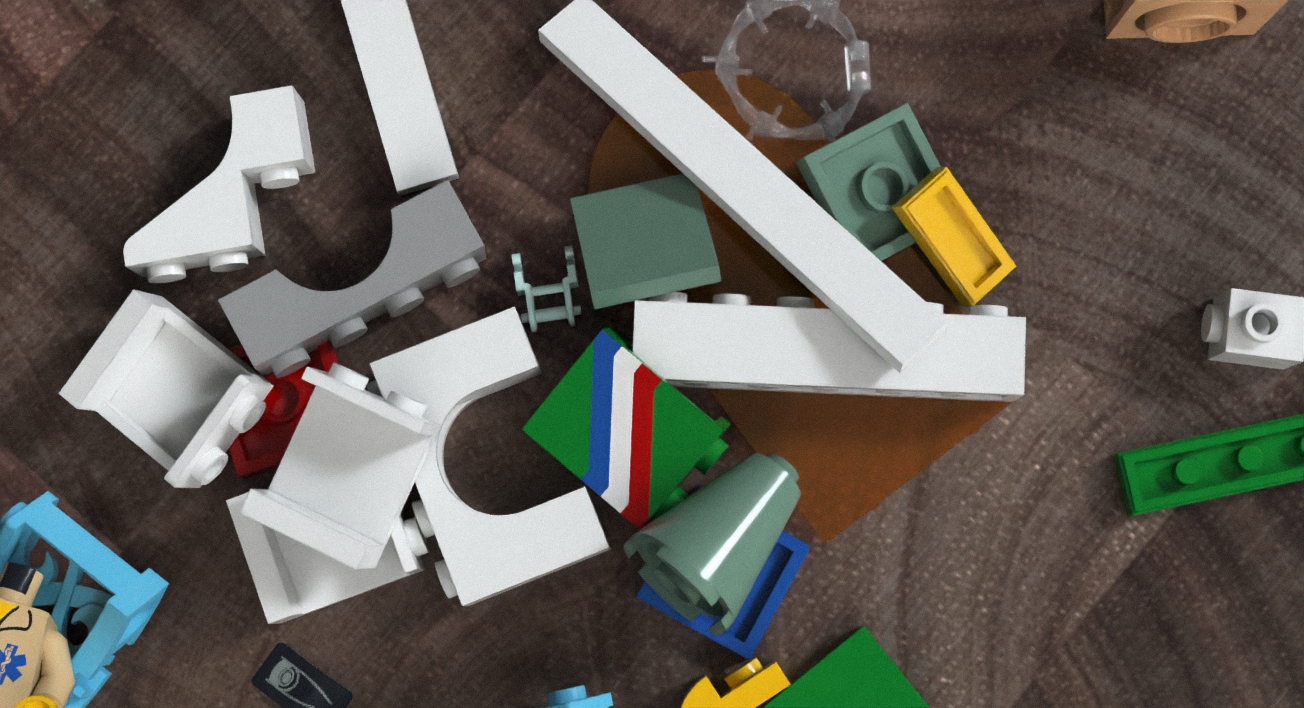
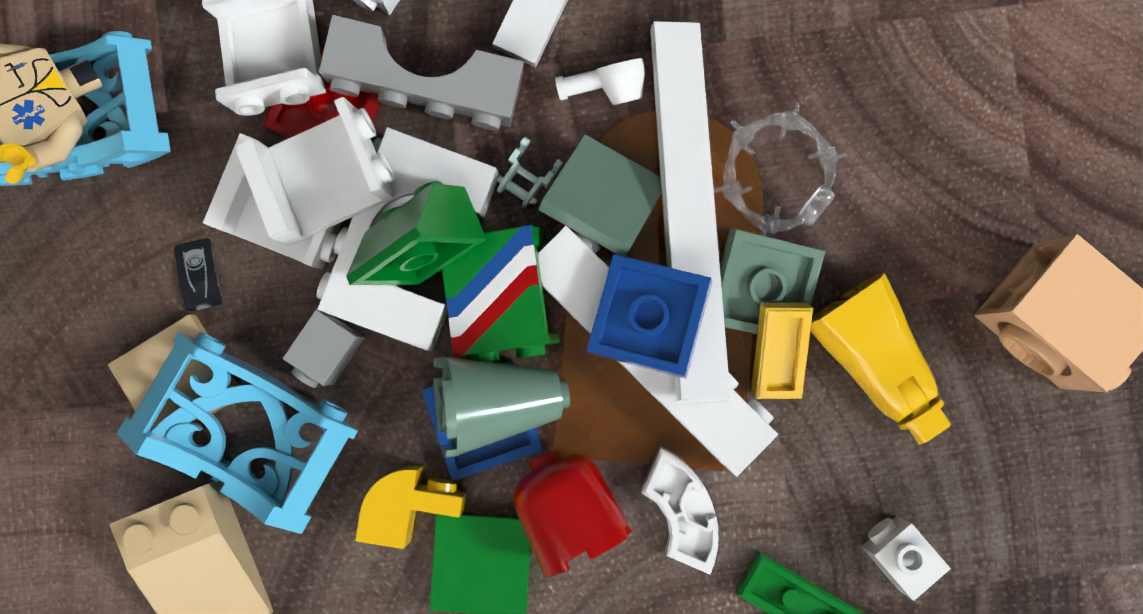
camera: 40 degrees right, 5 degrees up
(501, 440) = (417, 238): none -> green slope
(501, 645) = (322, 350): none -> light grey brick
(556, 118) = (620, 82): none -> white bar
(798, 312) = (649, 316): none -> blue tile
(890, 578) = (567, 511): none -> red cylinder
(1007, 477) = (686, 508): none -> white tile
(1049, 154) = (878, 350): none -> yellow piece

